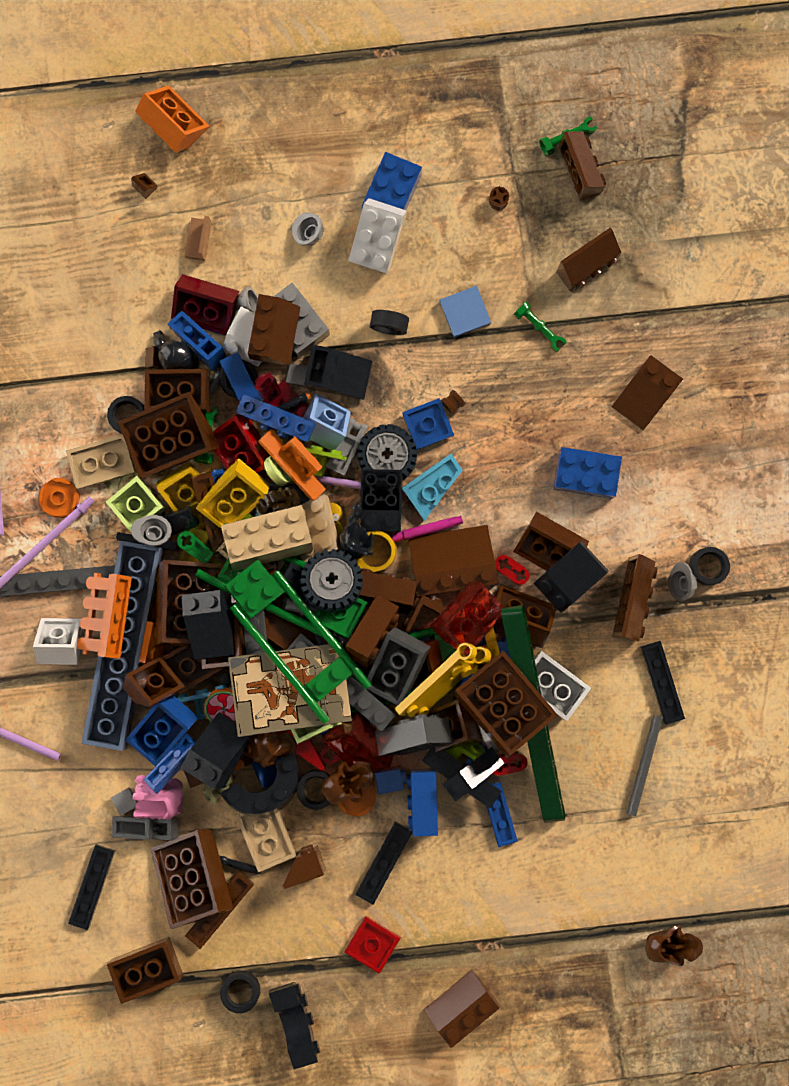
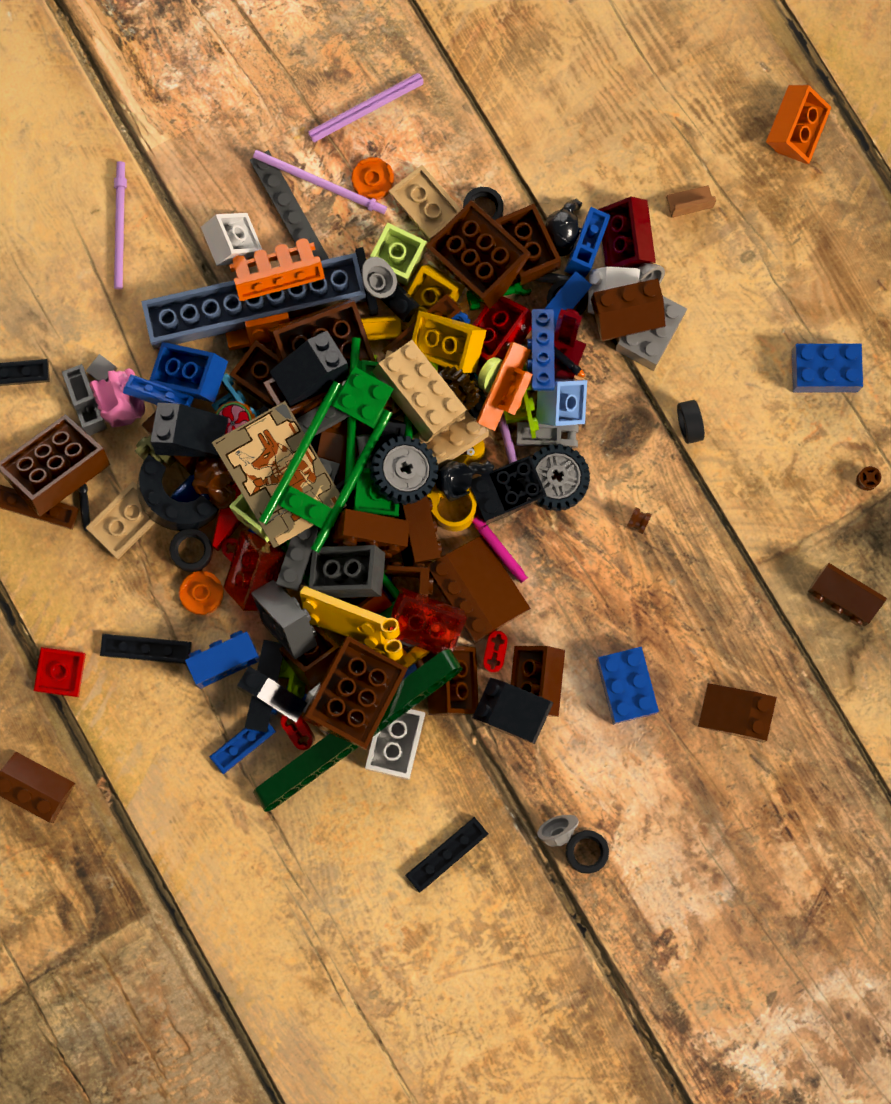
camera: 60 degrees right, 5 degrees down
(143, 185) = (720, 126): reddish brown slope -> none
(152, 359) = (549, 207): reddish brown slope -> none
(152, 683) = (229, 341): reddish brown slope -> none
(196, 548) = (381, 330): green piece -> none
(296, 374) = (598, 356): light grey tile -> none
(306, 866) = (111, 569): reddish brown slope -> none
(307, 229) = (748, 302): light grey piece -> none
(337, 372) = (617, 393): black slope -> none
(347, 781) = (212, 575): reddish brown head -> none
(377, 235) = (772, 371): white brick -> none
(390, 779) = (231, 616): dark blue brick -> none
(428, 424) = (605, 505): blue plate -> none
(432, 484) = (545, 535): medium azure wing -> none
(465, 311) = (737, 494): medium blue tile -> none
(539, 325) = (757, 574): green piece -> none
(634, 598) = (519, 787): reddish brown slope -> none
(644, 765) = (354, 871): dark grey piece -> none
(673, 946) = (181, 974): reddish brown head -> none

